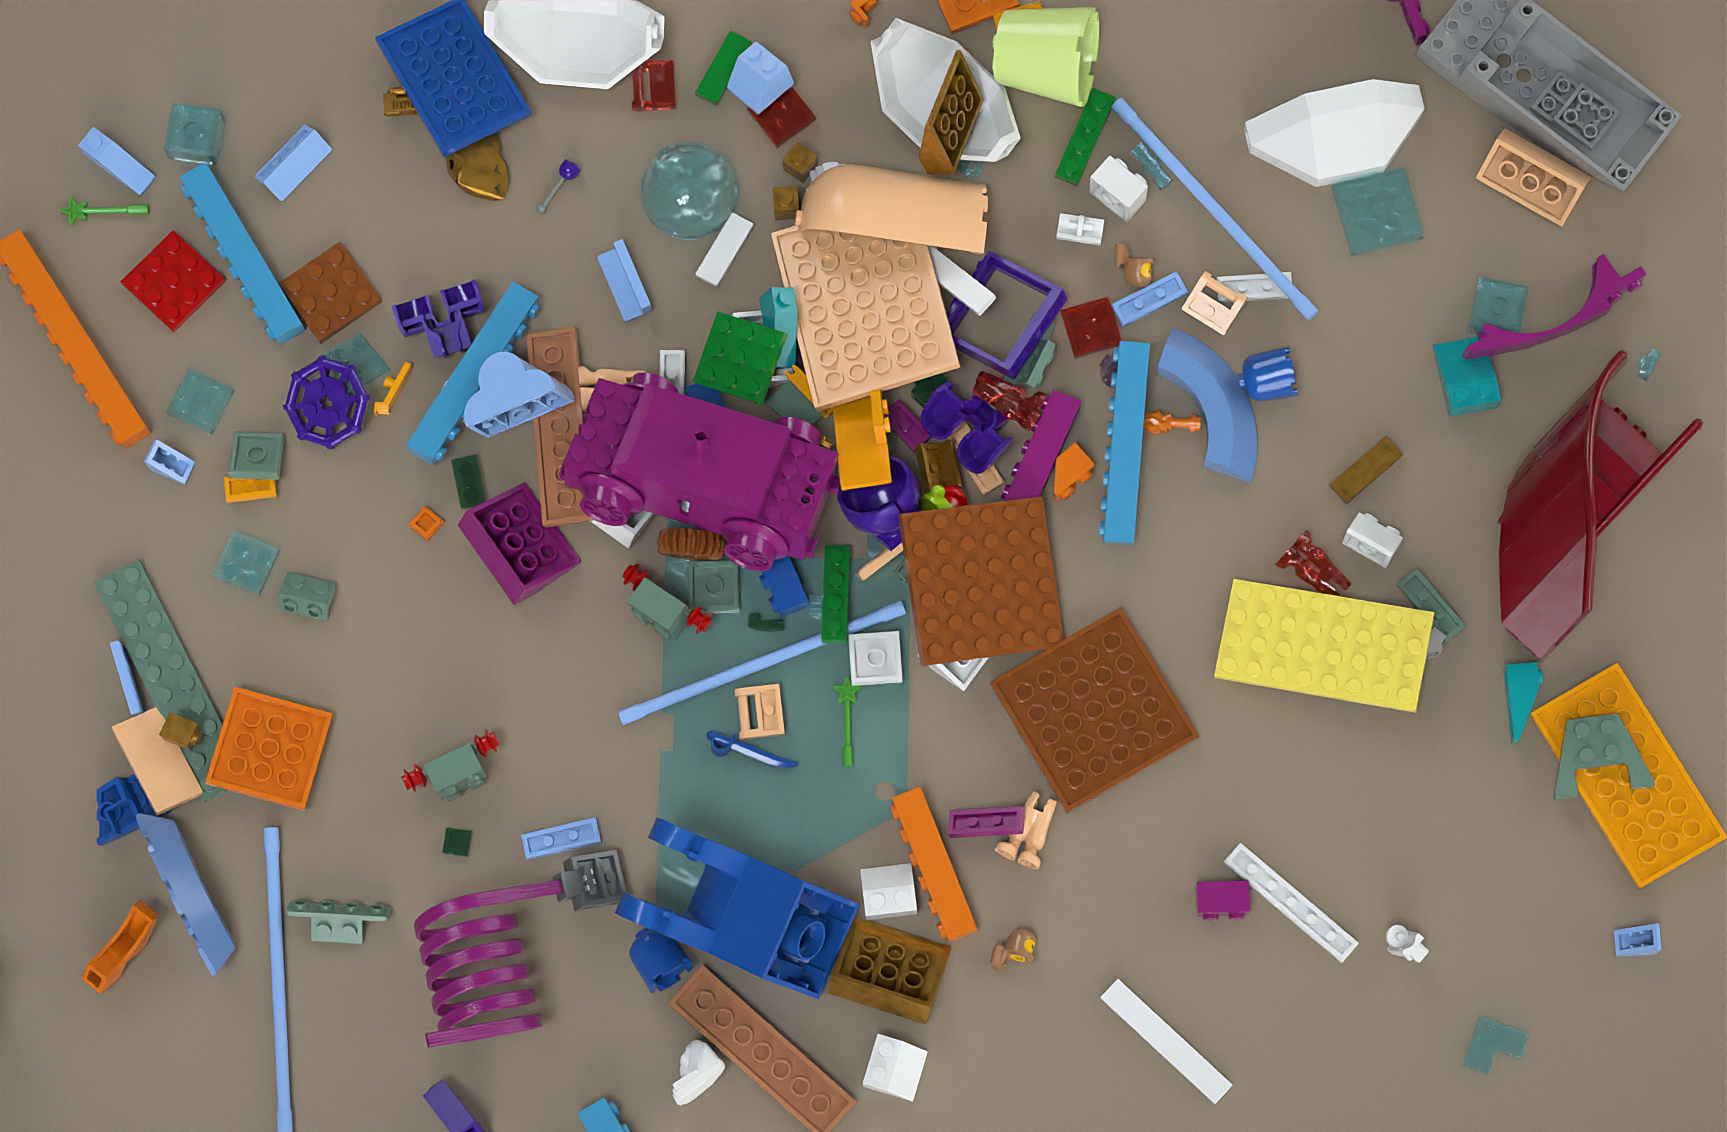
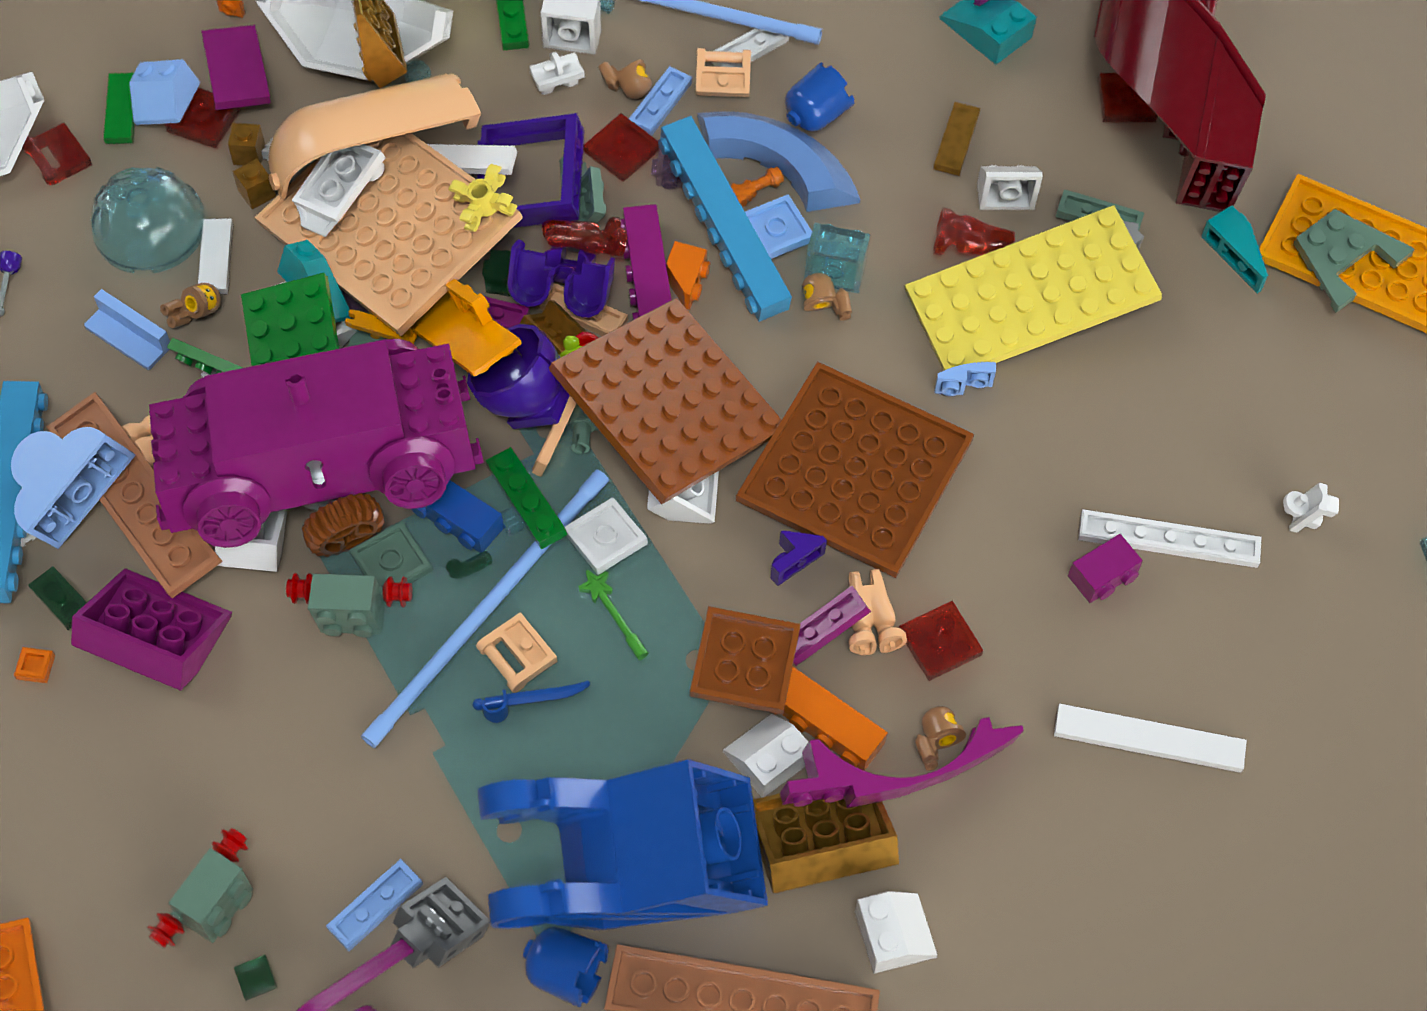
camera: 40 degrees left, 15 degrees down
(667, 350) = (204, 361): none -> green plate
(686, 287) = (195, 303): none -> medium nougat piece
(830, 81) = (235, 67): none -> magenta tile
(838, 254) = (336, 185): none -> white slope
(908, 818) = (745, 660): none -> dark orange plate
(913, 941) = (836, 779): none -> magenta slope
(930, 329) = (482, 197): none -> light yellow pin
(1011, 755) = (799, 552): none -> dark purple slope
(1065, 881) = (941, 640): none -> clear red plate
(1162, 549) = (821, 294): none -> medium nougat piece
(1166, 470) = (779, 226): none -> light blue plate
(1190, 528) = (838, 254): none -> clear light blue brick
(1215, 683) = (953, 380): none -> light blue slope

